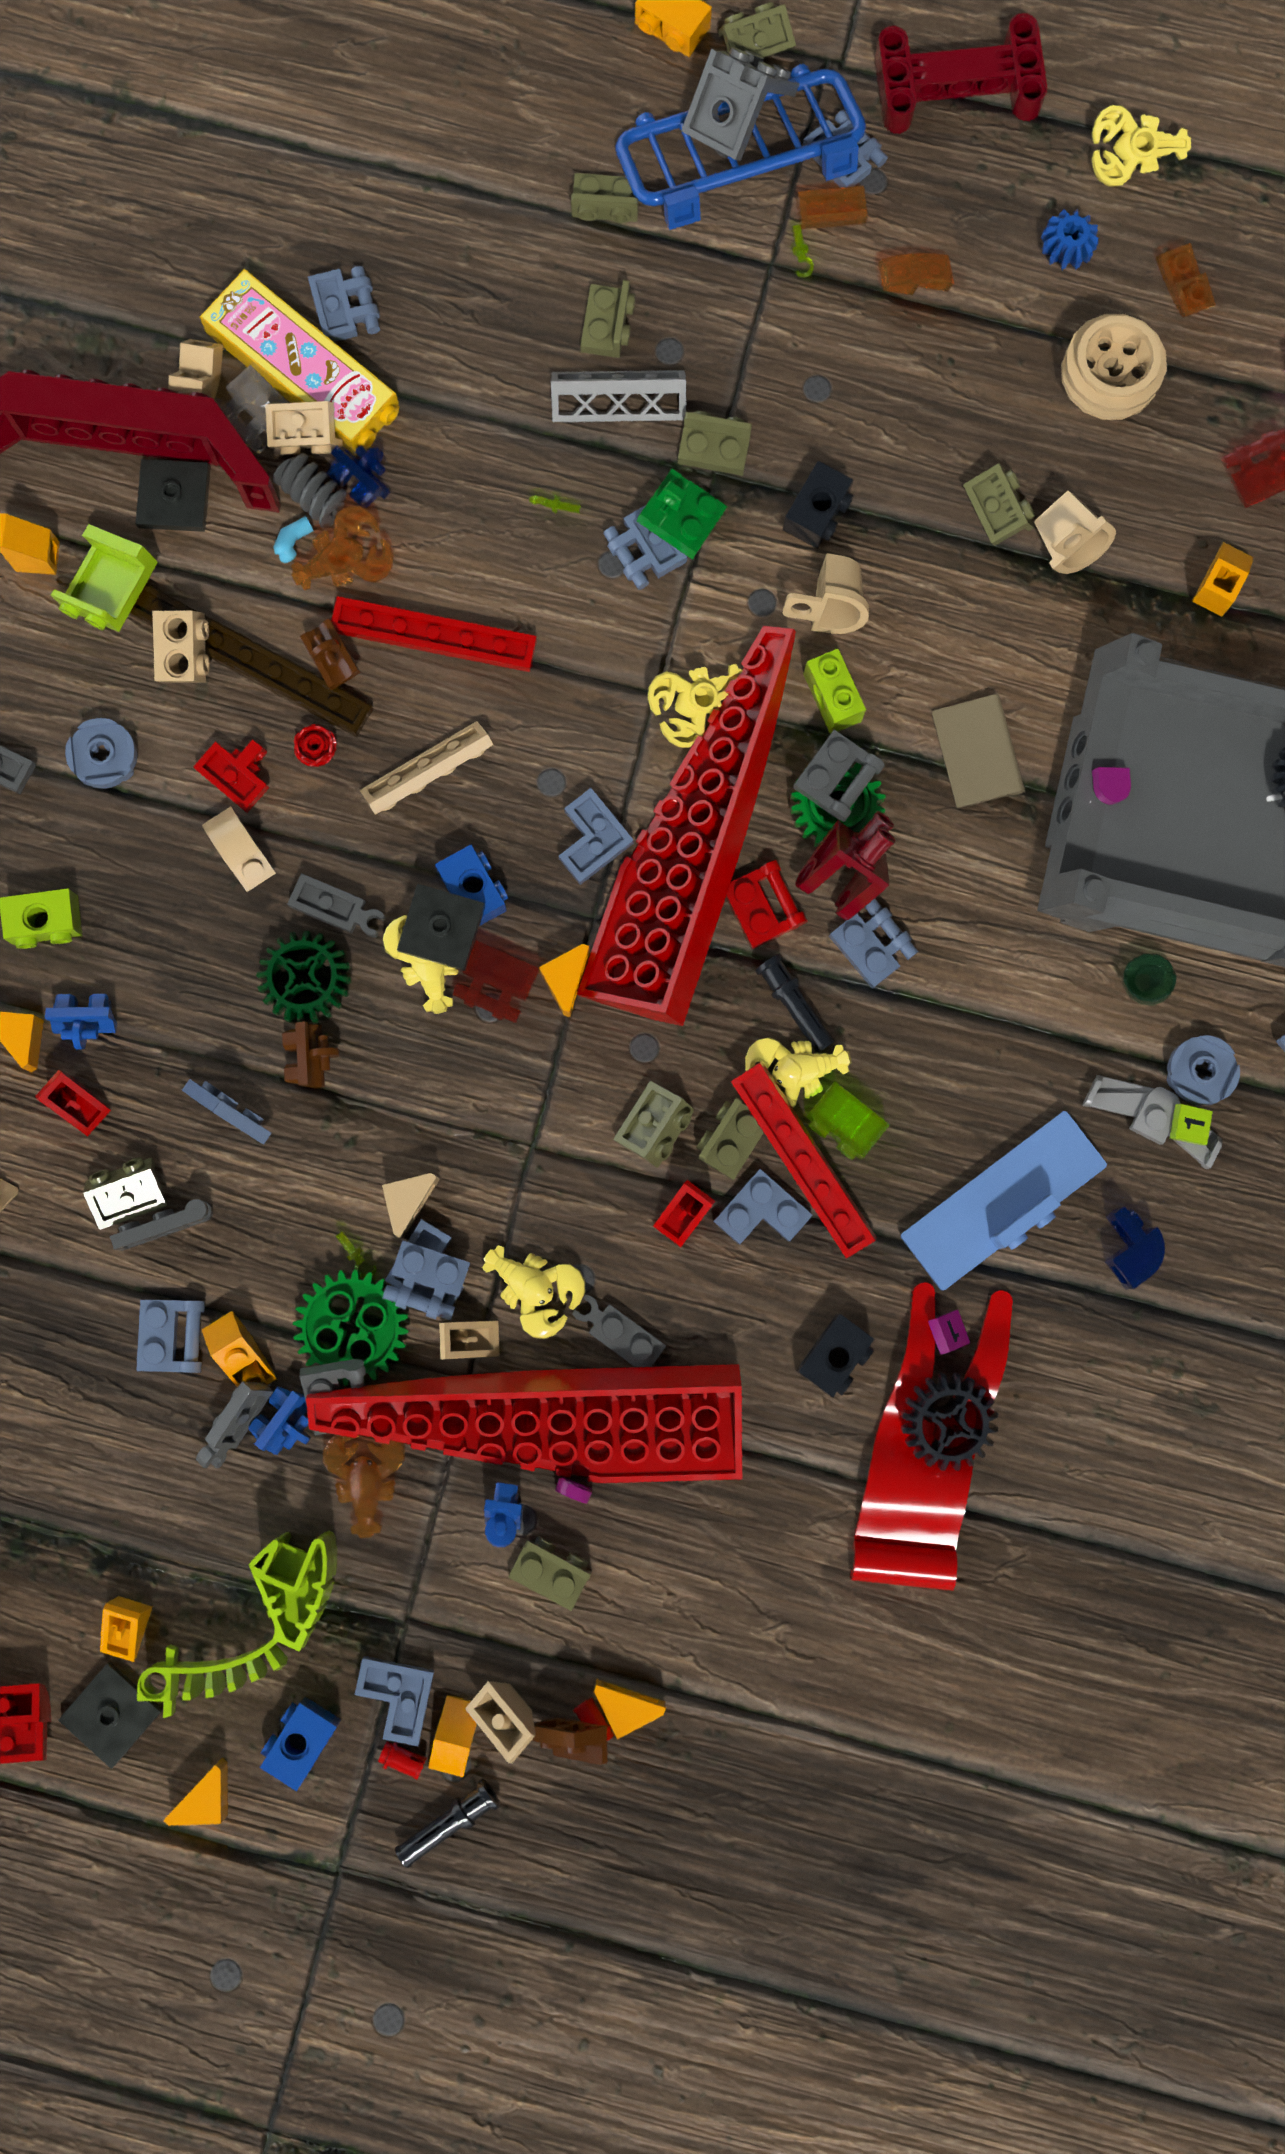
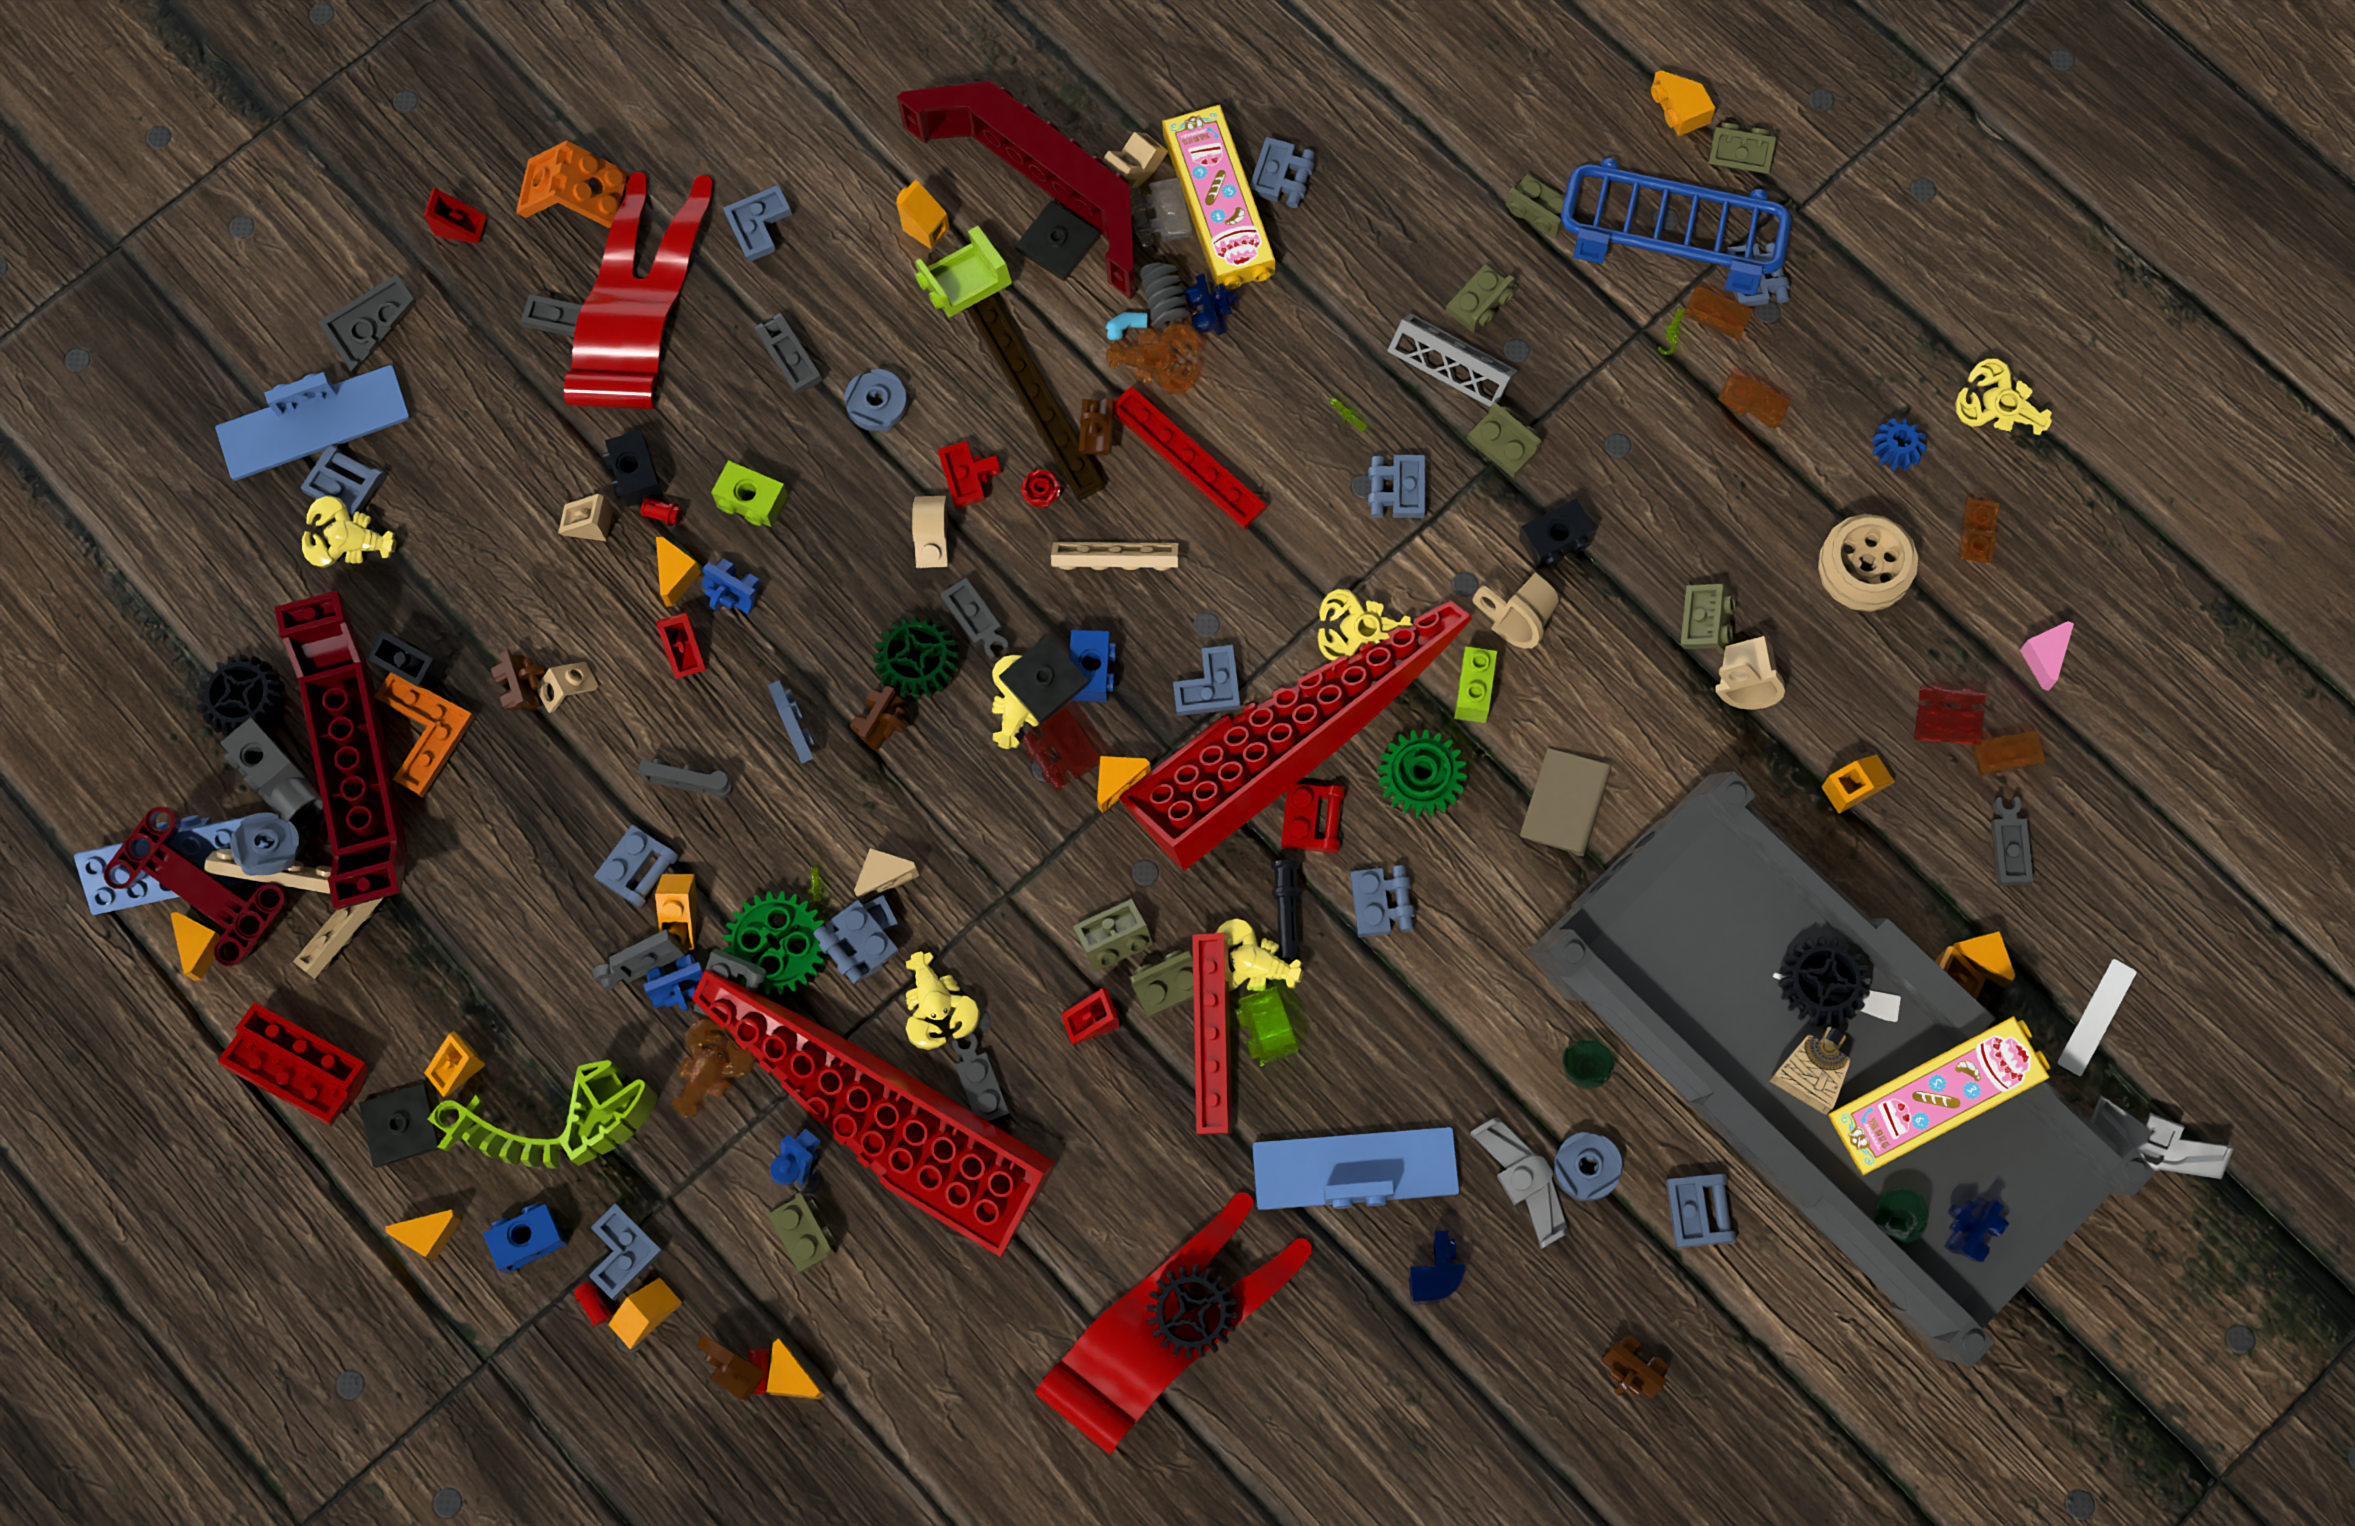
camera: 40 degrees right, 10 degrees down
(124, 1192) = (674, 736): bracket -> none
(171, 648) = (979, 351): tan brick -> none
(301, 427) = (1186, 244): tan bracket -> none
(462, 1814) = (608, 1376): black pin -> none
(469, 1339) = (857, 1009): tan slope -> none
(503, 1718) = (690, 1314): tan slope -> none
(573, 1490) = (863, 1179): magenta tile -> none
(681, 513) = (1442, 478): green hinge -> none
(741, 82) = (1694, 177): dark grey bracket -> none
(762, 1200) = (1157, 1047): sand blue plate -> none
(816, 1364) = (1151, 1190): black brick -> none
(828, 770) = (1428, 740): dark grey plate -> none
(859, 850) = (1409, 818): dark red piece -> none
(949, 1332) = (1241, 1244): magenta tile -> none
(961, 73) = (1890, 267): dark red beam -> none
(1111, 784) = (1648, 884): magenta tile -> none
(1191, 1124) = (1547, 1201): lime tile -> none

